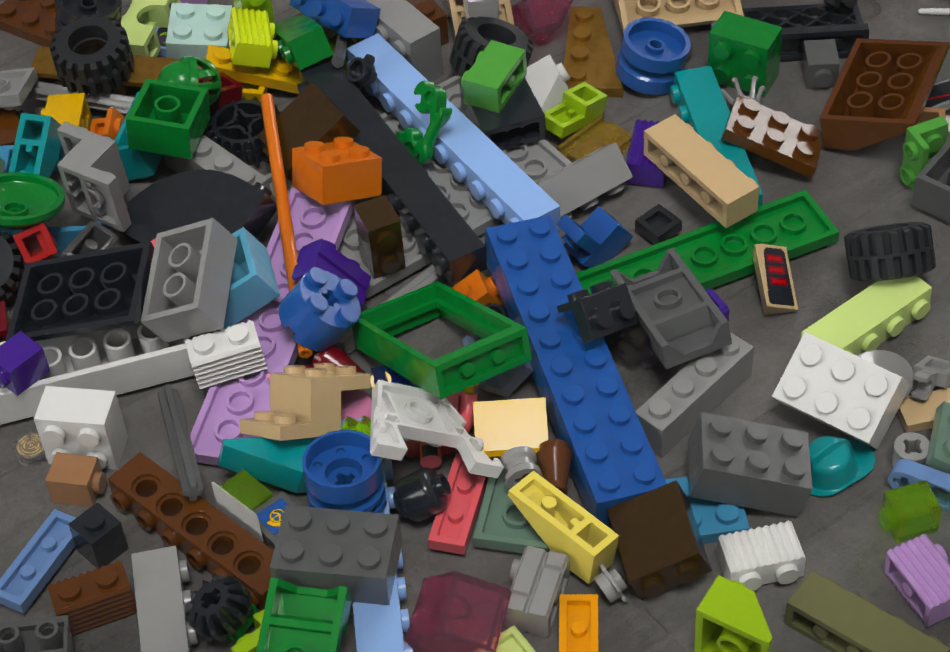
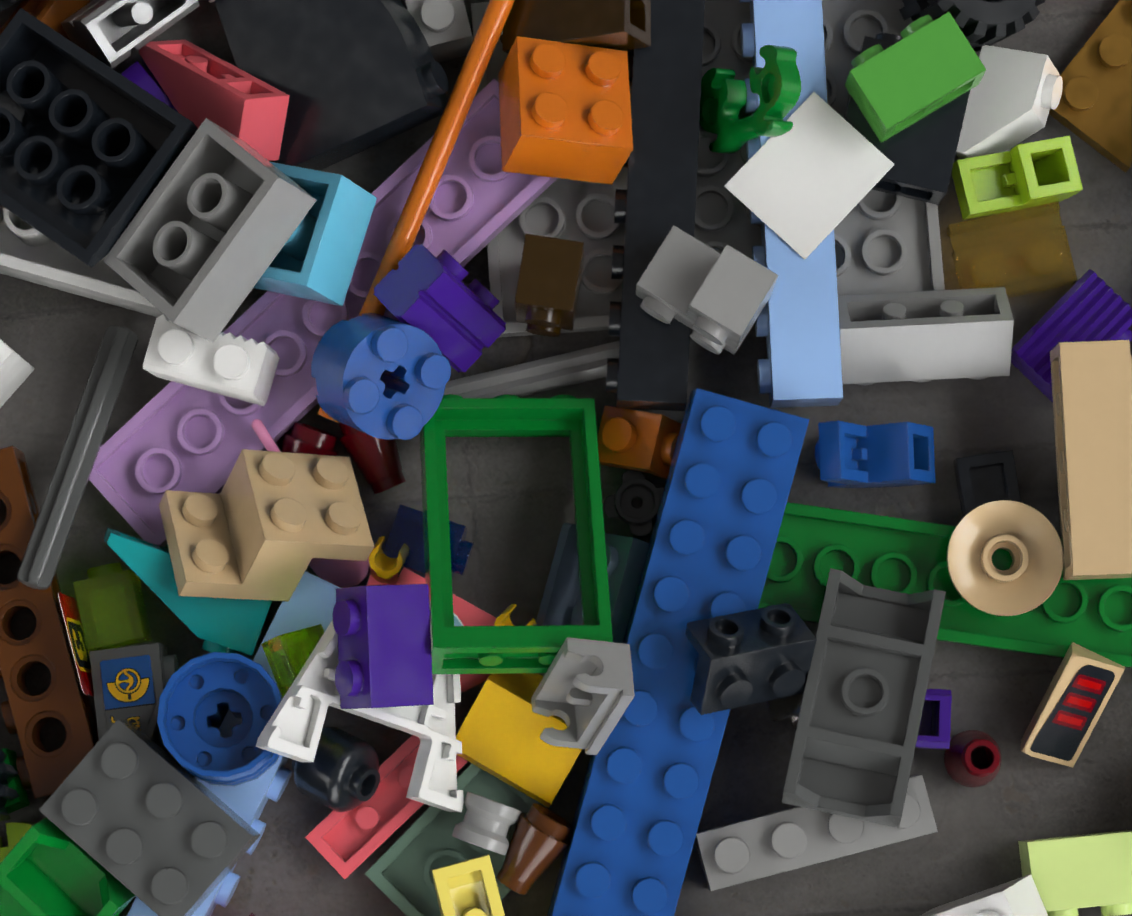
camera: 30 degrees right, 35 degrees up
(408, 387) = (383, 646): none -> dark purple brick
(462, 189) = (705, 290): none -> light grey brick
(474, 139) = (809, 176): none -> white sticker
(527, 362) = (588, 689): none -> light grey hinge
(691, 231) = (1034, 553): none -> tan dish
(747, 320) = (959, 763): none -> dark red cone

